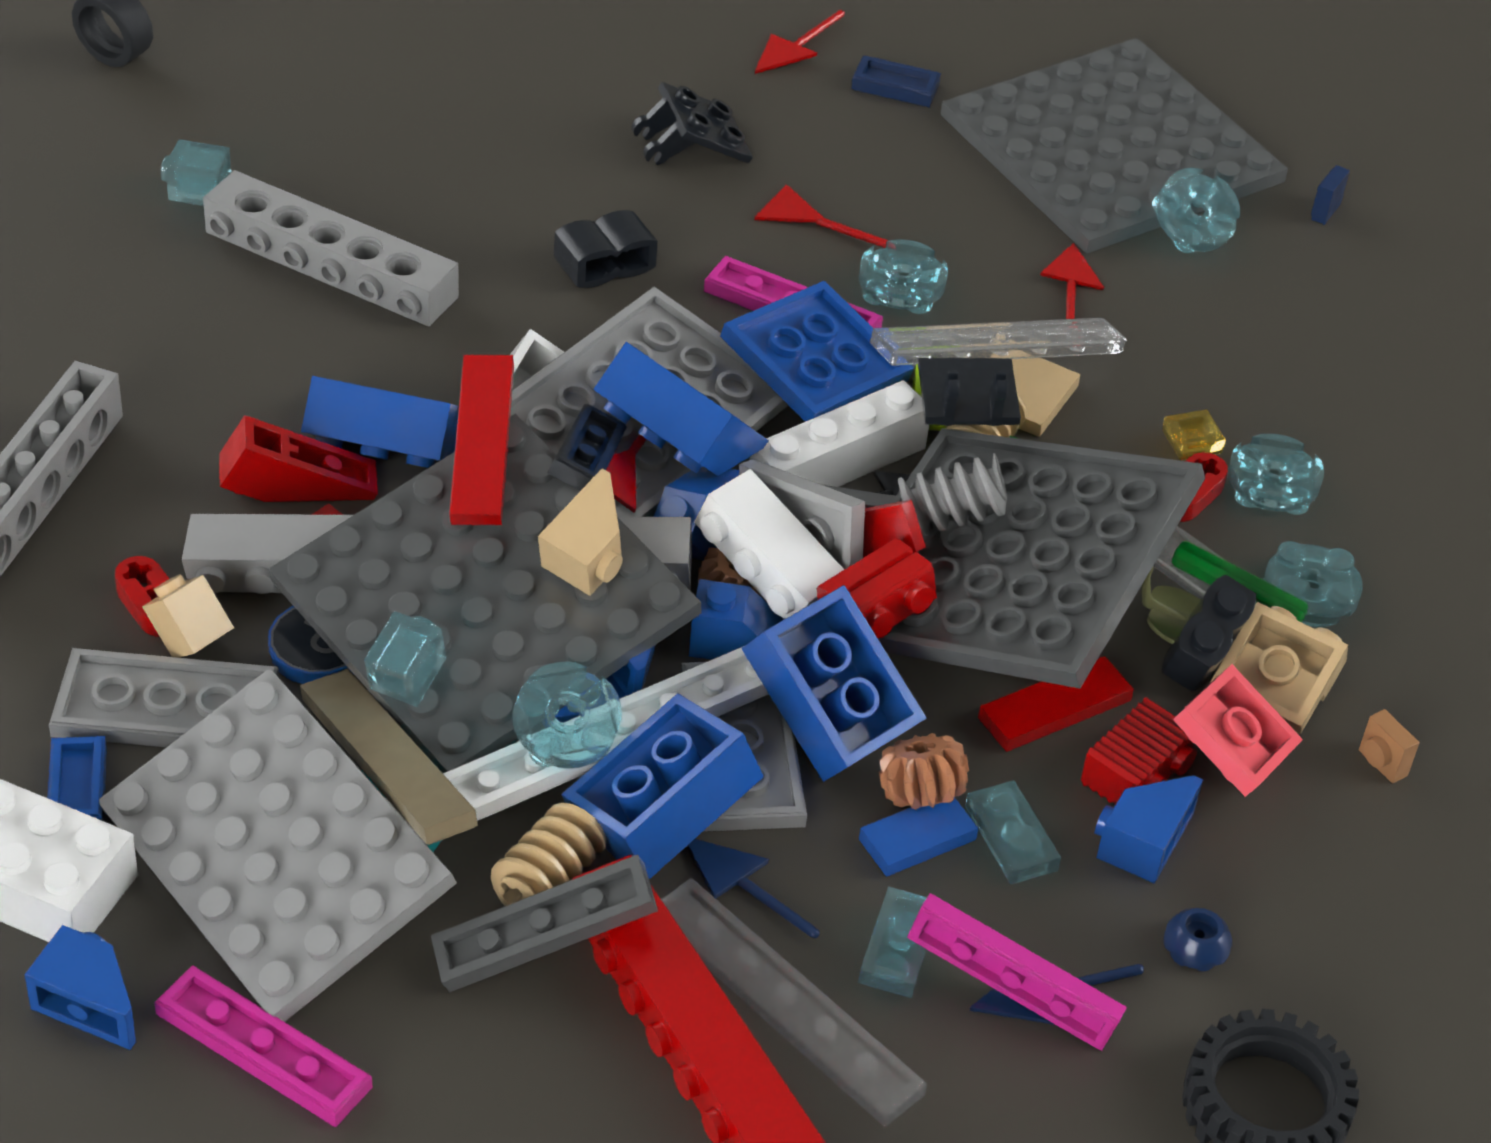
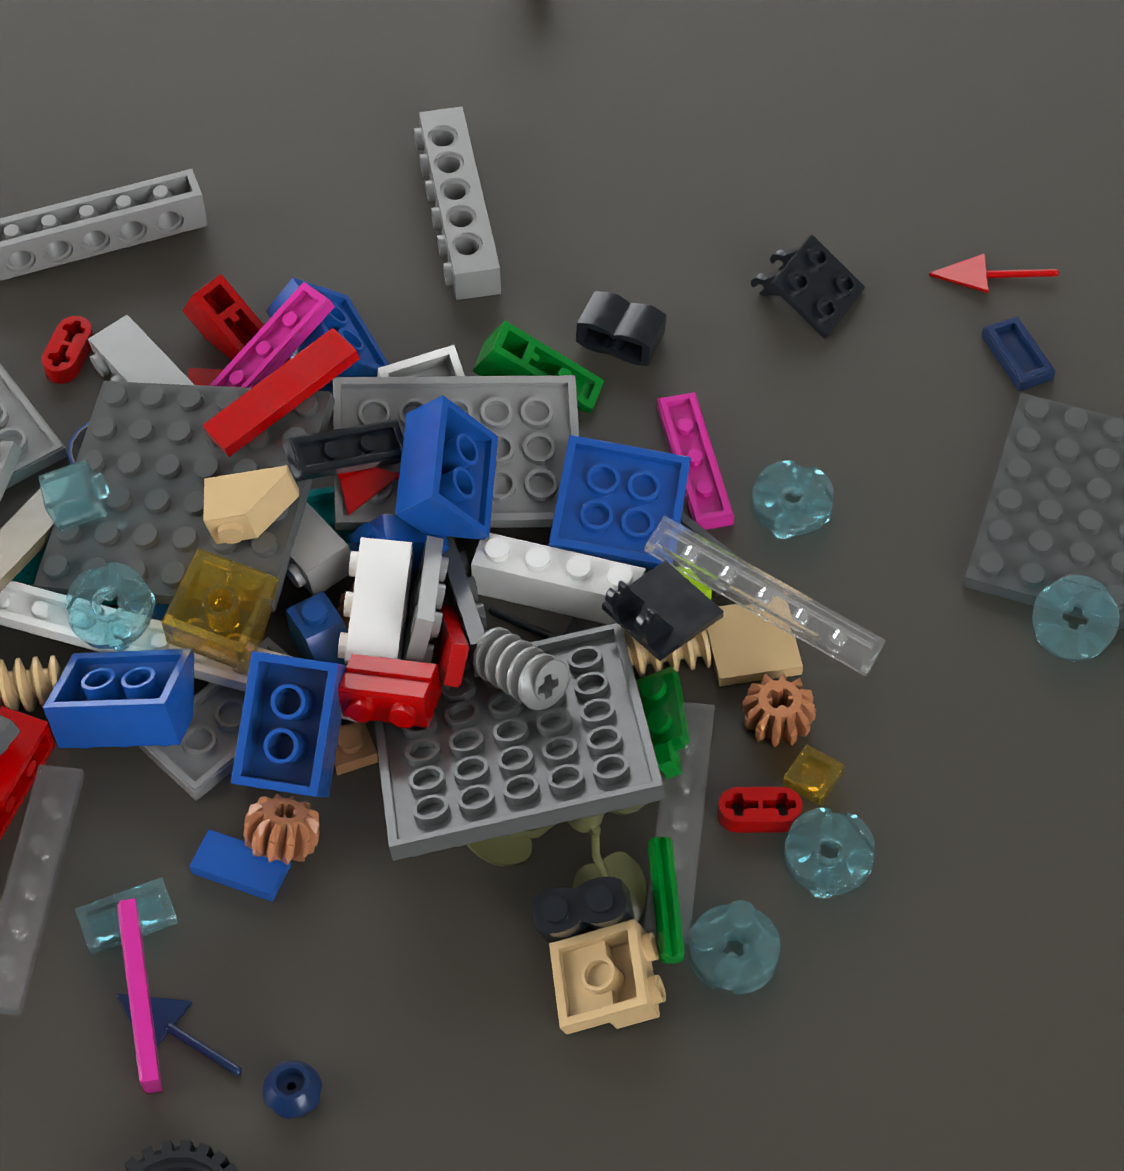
camera: 55 degrees right, 10 degrees up
(187, 615) = (50, 375): tan brick -> none
(194, 170) = (455, 88): clear light blue brick -> none
(368, 432) = (277, 339): none -> dark pink tile
(570, 315) = (519, 354): none -> green slope
(675, 637) = (220, 609): none -> clear yellow slope
(728, 867) = (117, 781): dark blue piece -> none
(790, 207) = (800, 395): red piece -> none
(1012, 832) = (293, 917): clear light blue plate -> none
(1052, 707) = (451, 871): red tile -> none
(1073, 269) = (926, 589): red piece -> none
(1112, 411) = (778, 709): none -> nougat gear
(1138, 752) = (429, 945): red brick -> none
(1147, 825) = (366, 992): blue slope -> none
(1238, 730) = (491, 986): coral plate -> none
(1388, 746) = (591, 1095): medium nougat plate -> none

